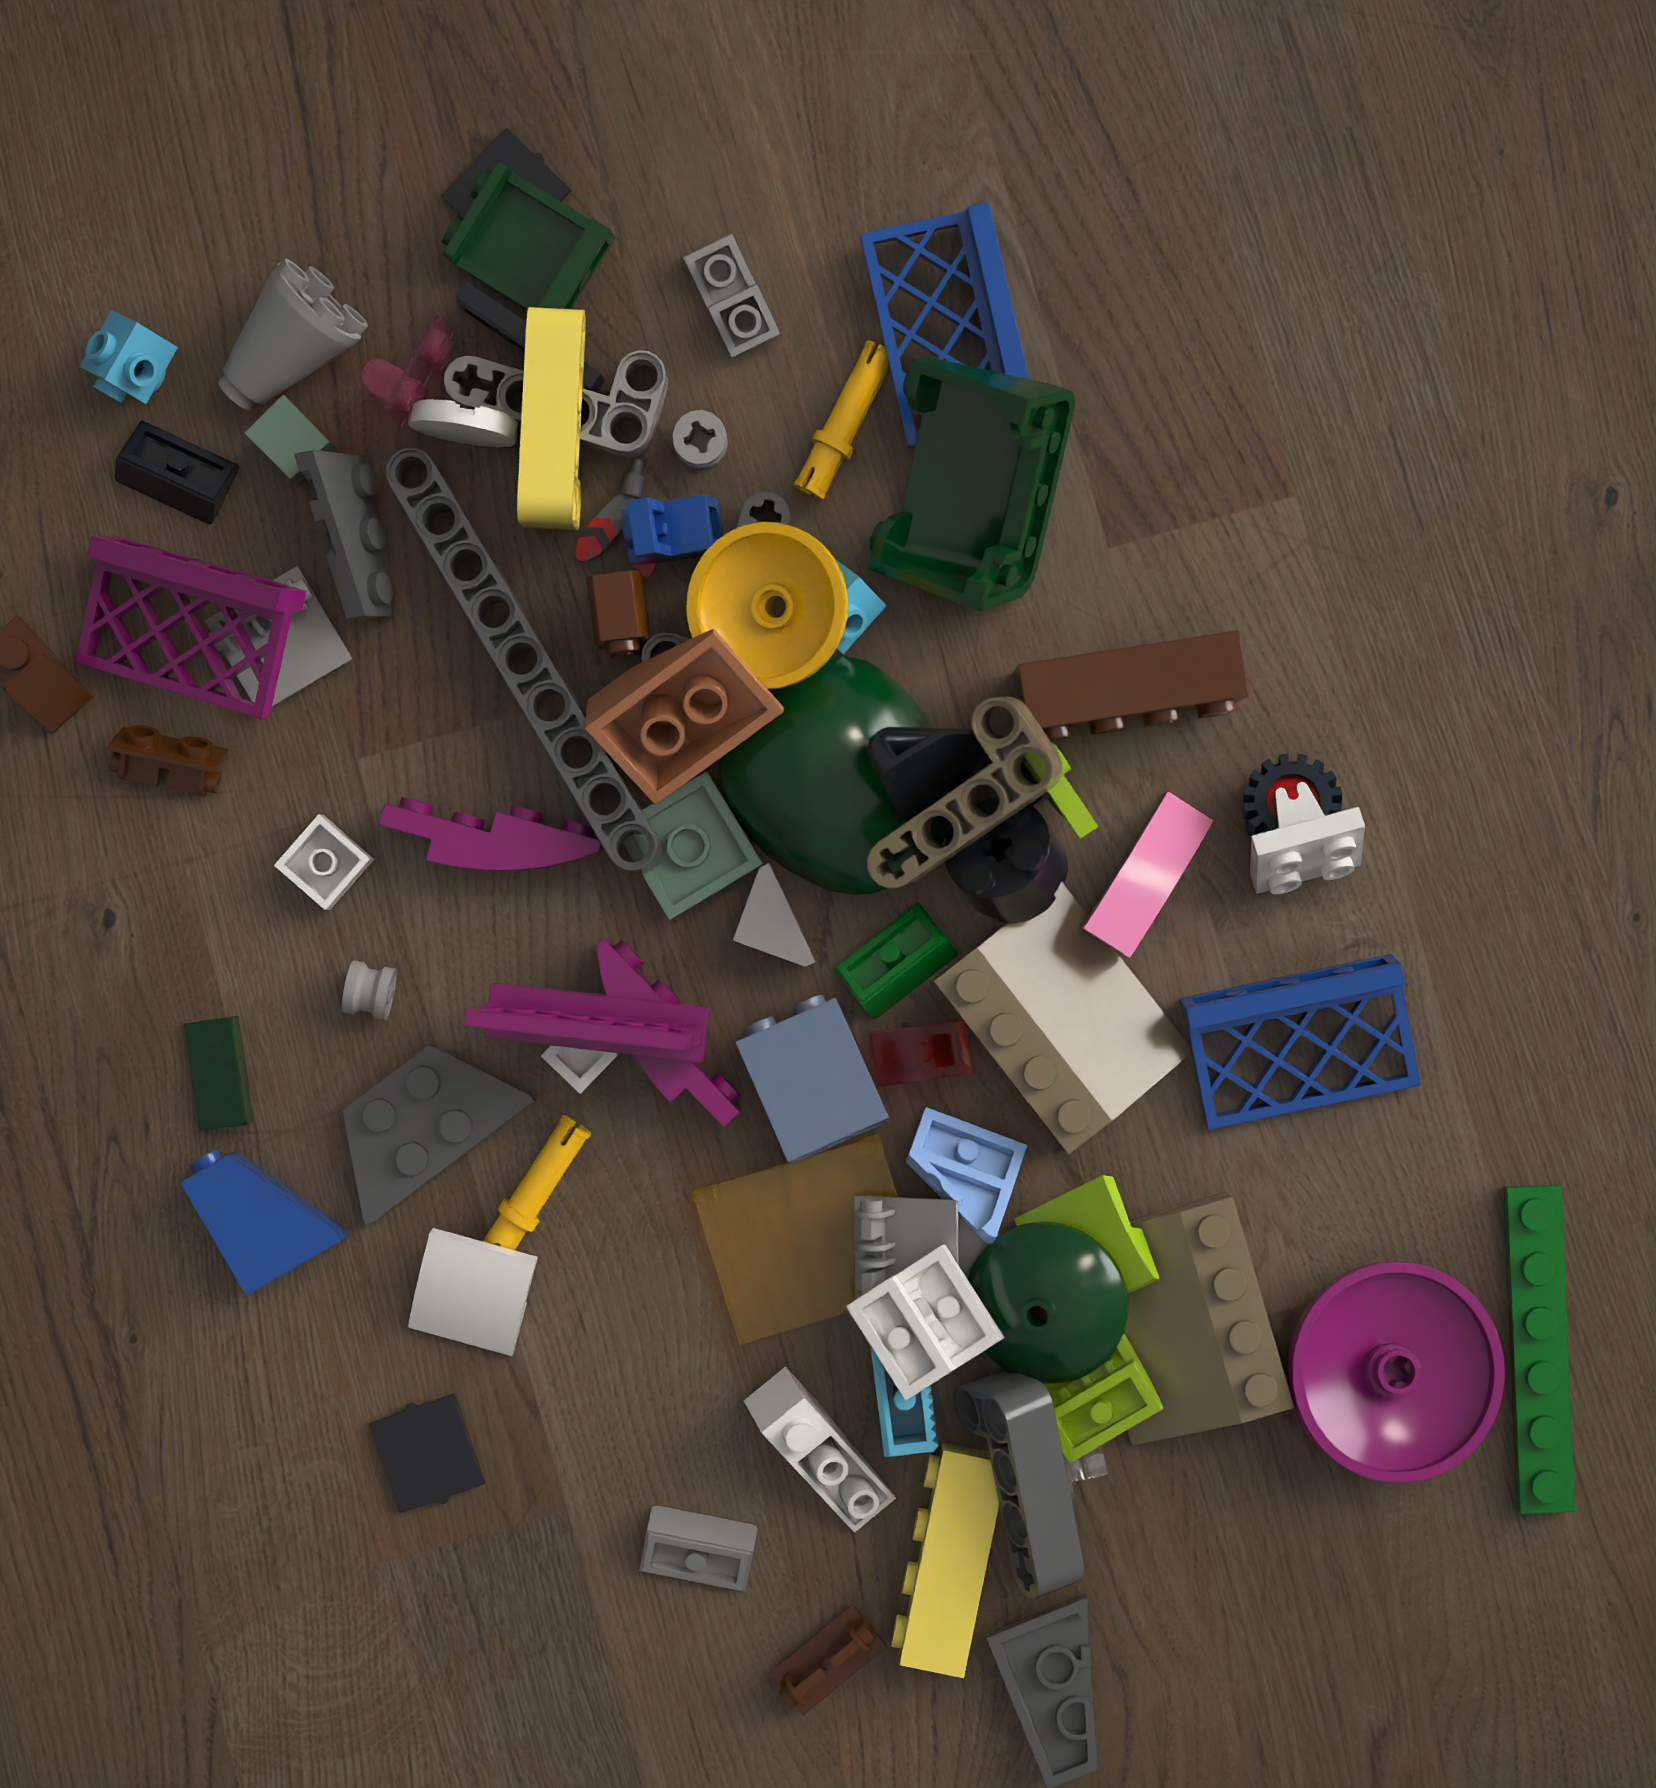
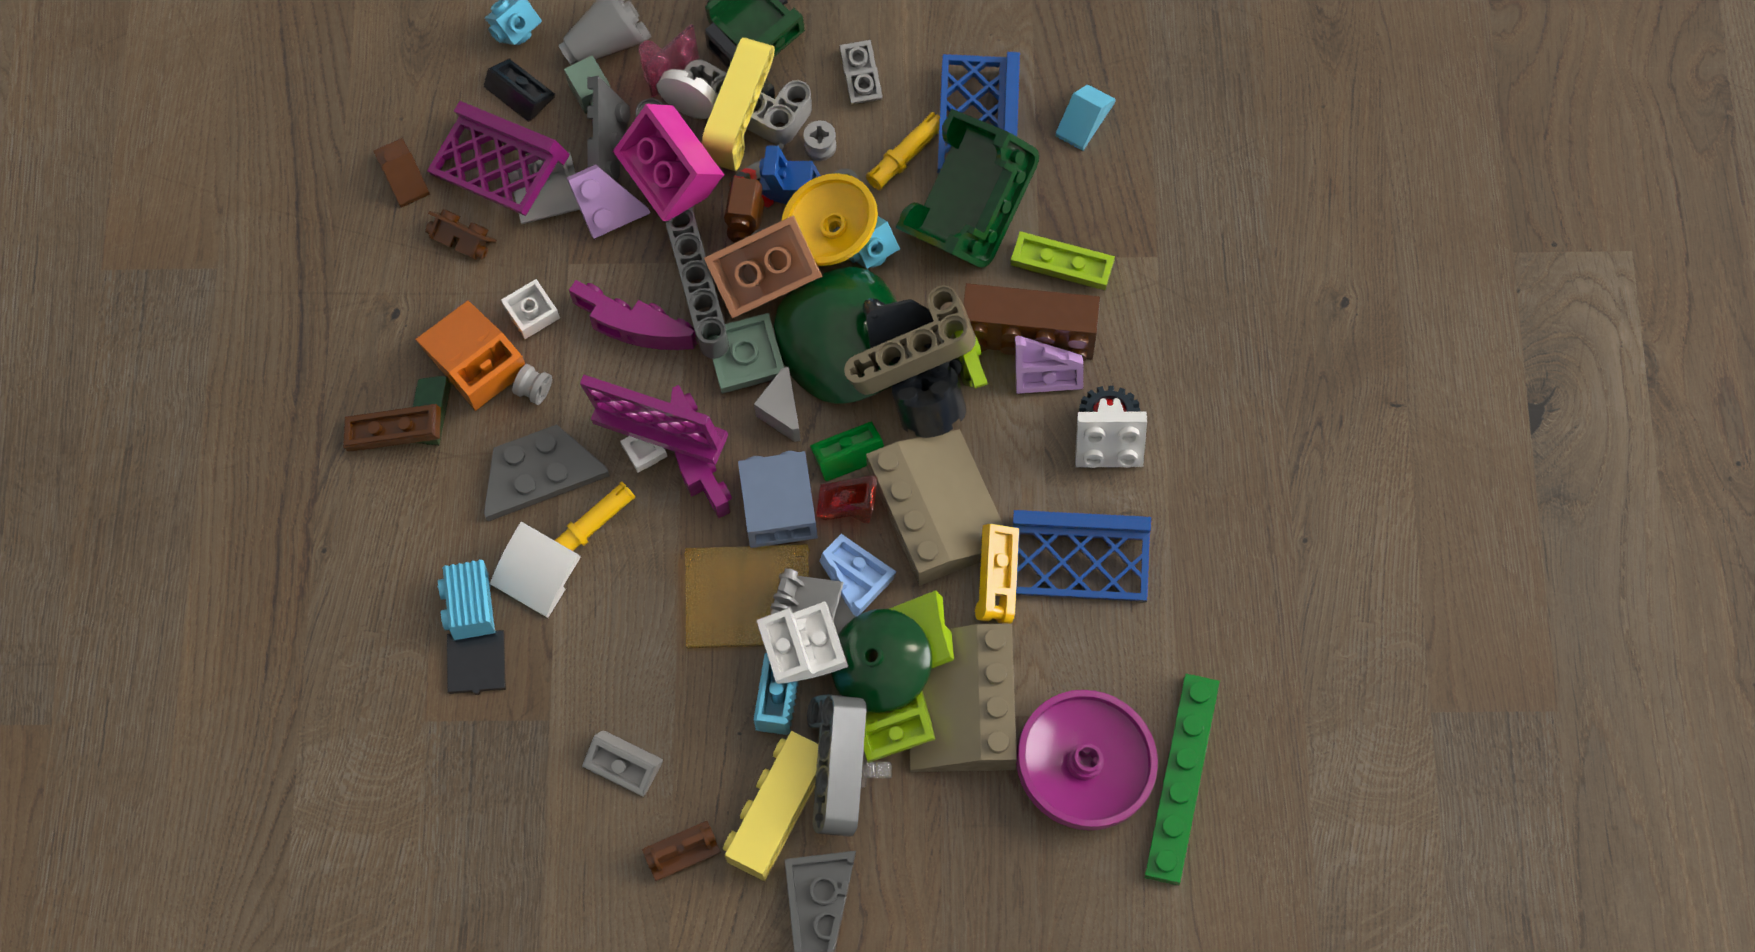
camera: 15 degrees right, 20 degrees down
(173, 1123) = (392, 427): none -> reddish brown tile
(254, 964) = (472, 354): none -> orange slope
(256, 1219) = (422, 497): blue slope -> none
(385, 648) = (604, 201): none -> lavender wing
(385, 1371) = (467, 600): none -> medium azure brick
(473, 569) = (667, 161): none -> dark pink slope
(818, 1449) = (716, 720): white slope -> none
(1119, 277) = (1084, 116): none -> medium azure slope
(1147, 875) = (1010, 437): bright pink slope -> none
(1149, 550) = (1062, 260): none -> lime plate
(1174, 751) = (1045, 367): none -> lavender wing
(1186, 1112) = (998, 573): none -> yellow plate

